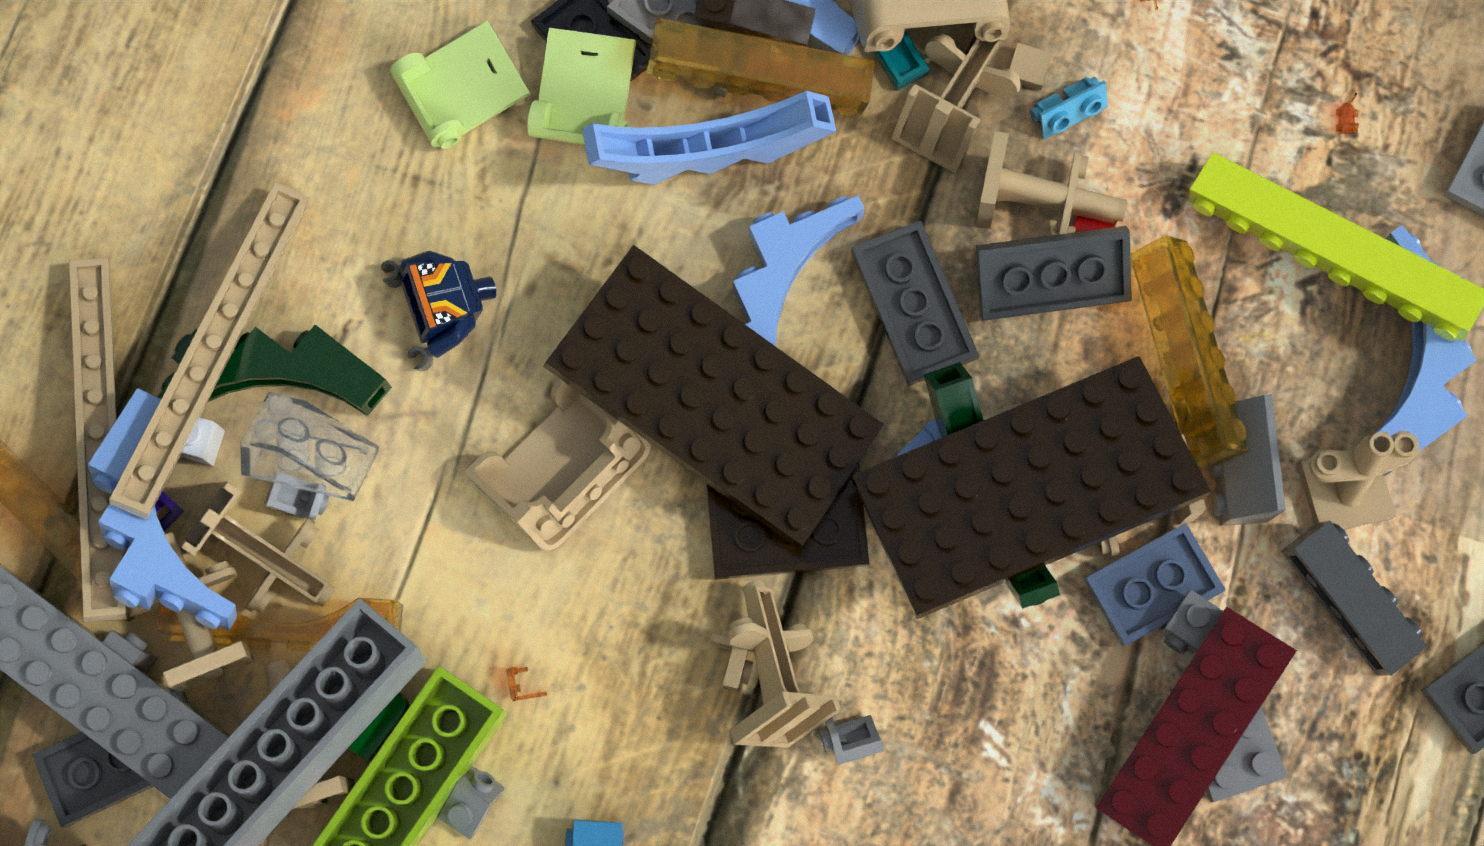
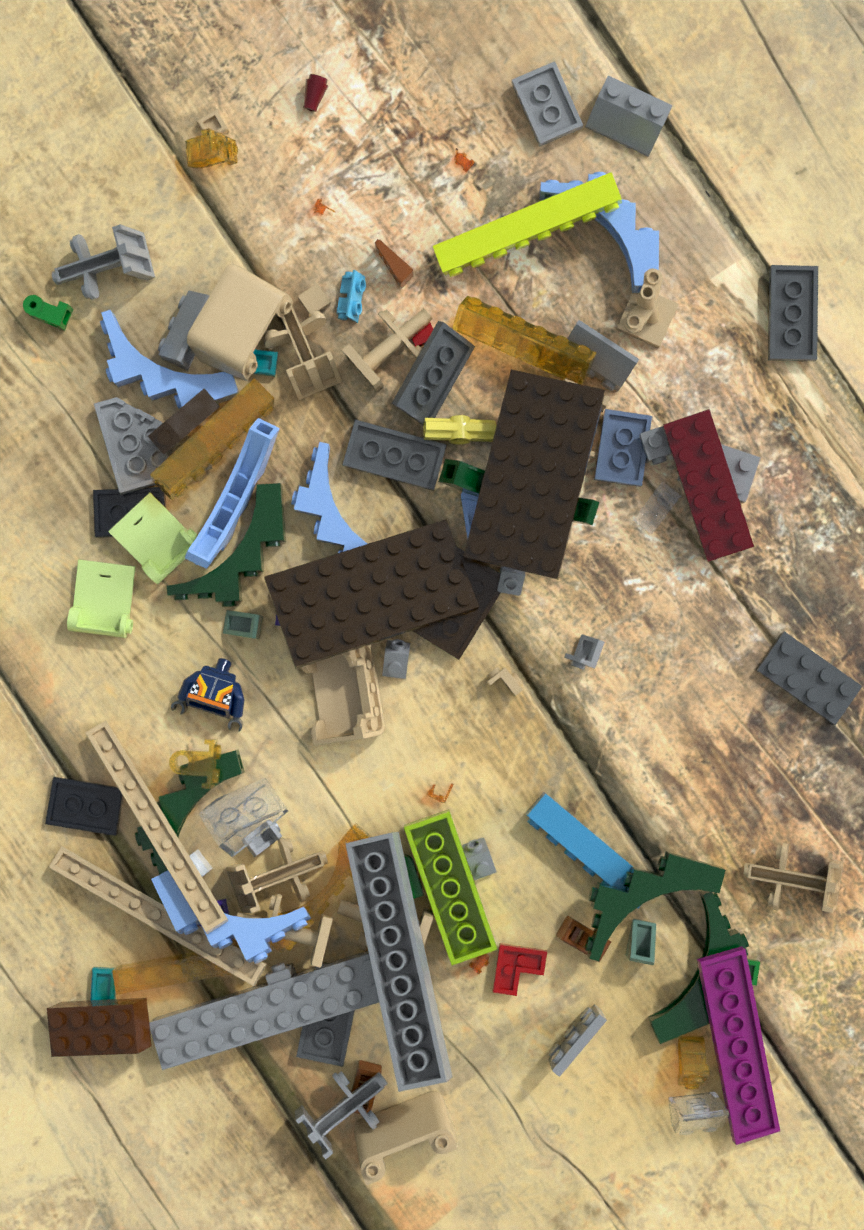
camera: 55 degrees left, 10 degrees up
(179, 250) = (84, 806): none -> black tile
(334, 342) = (200, 763): none -> clear yellow pin
(556, 276) = (242, 624): none -> sand green slope
(595, 212) = (225, 581): none -> dark green arch
(655, 497) = (396, 659): none -> light grey bracket
(785, 711) = (549, 673): tan piece -> none
(868, 566) = (510, 581): none -> light grey bracket
(1008, 354) = (459, 429): none -> light yellow piece
(1112, 689) = (657, 507): none -> clear slope
(1151, 134) = (398, 268): none -> dark orange slope
(1355, 598) = (702, 356): dark grey brick -> none

